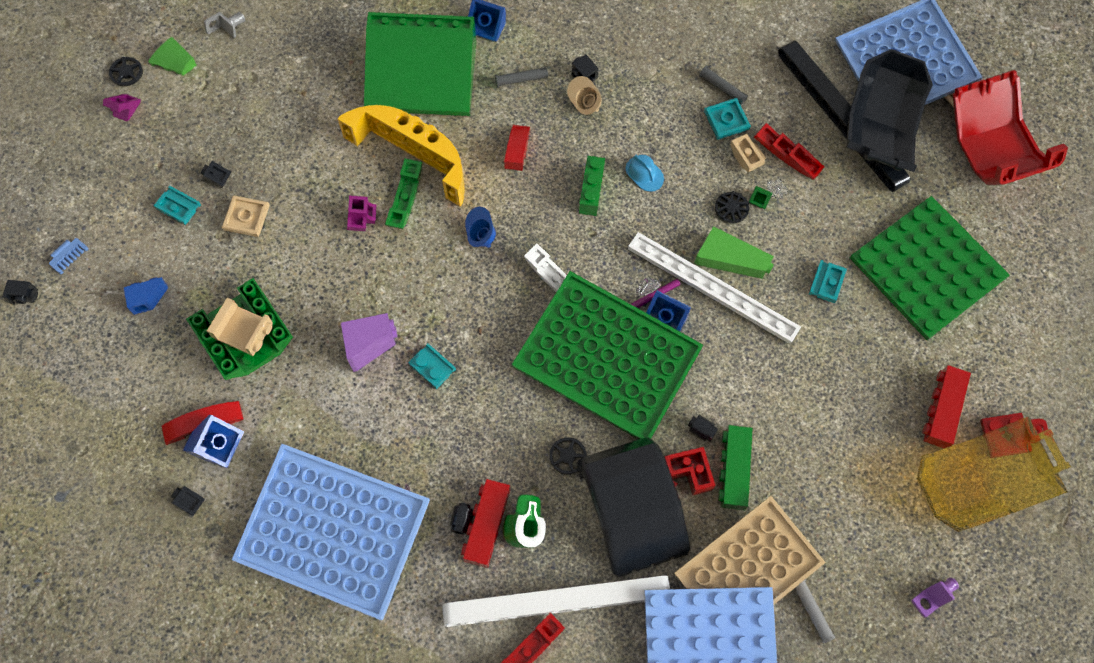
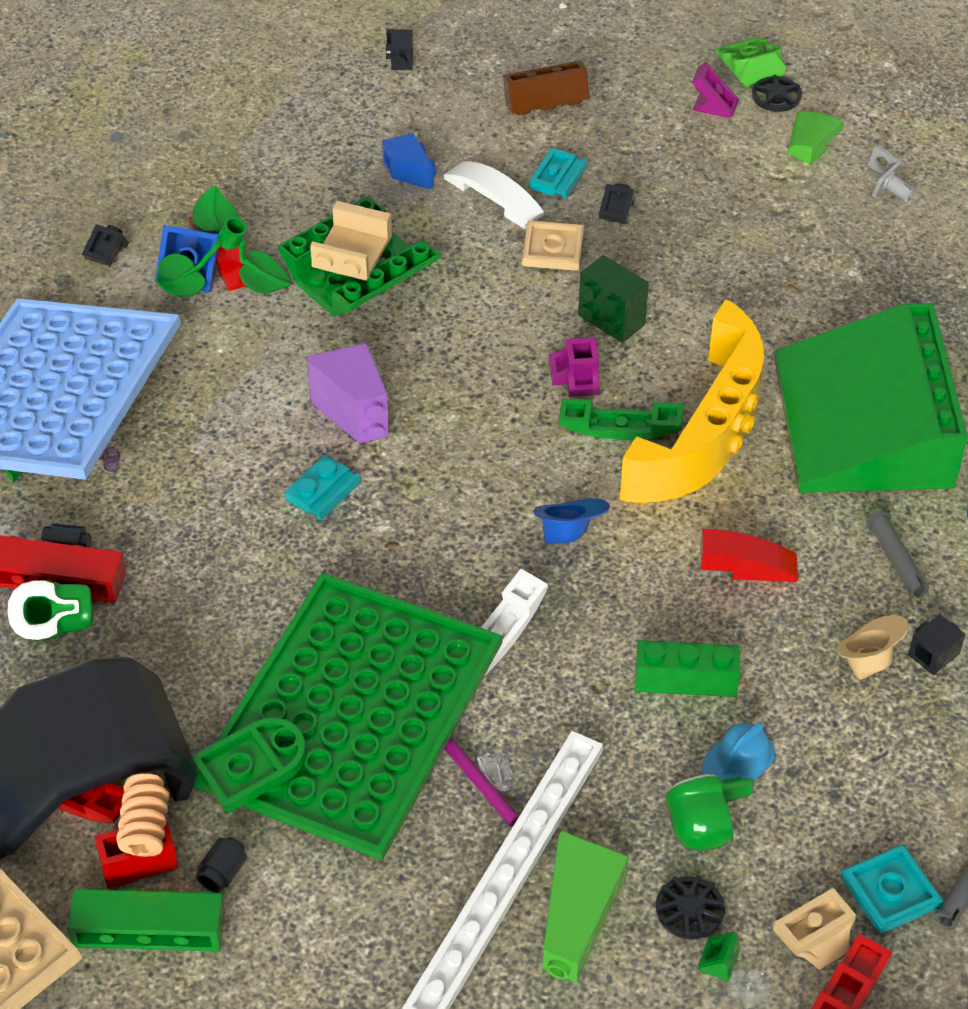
camera: 85 degrees right, 20 degrees down
(63, 252) = (472, 84): medium blue piece -> none
(89, 78) = (752, 60): none -> bright green slope
(92, 201) = (546, 87): none -> reddish brown brick
(181, 245) = (498, 187): none -> white slope
(236, 394) = (210, 214): none -> green plant
(310, 184) = (613, 298): none -> dark green brick
(567, 455) = (174, 674): black wheel -> none
(643, 409) = (251, 761): none -> green tile
(668, 310) = (442, 799): blue slope -> none
(684, 190) = (701, 812): none -> green piece
(696, 458) = (143, 815): none -> light nougat piece

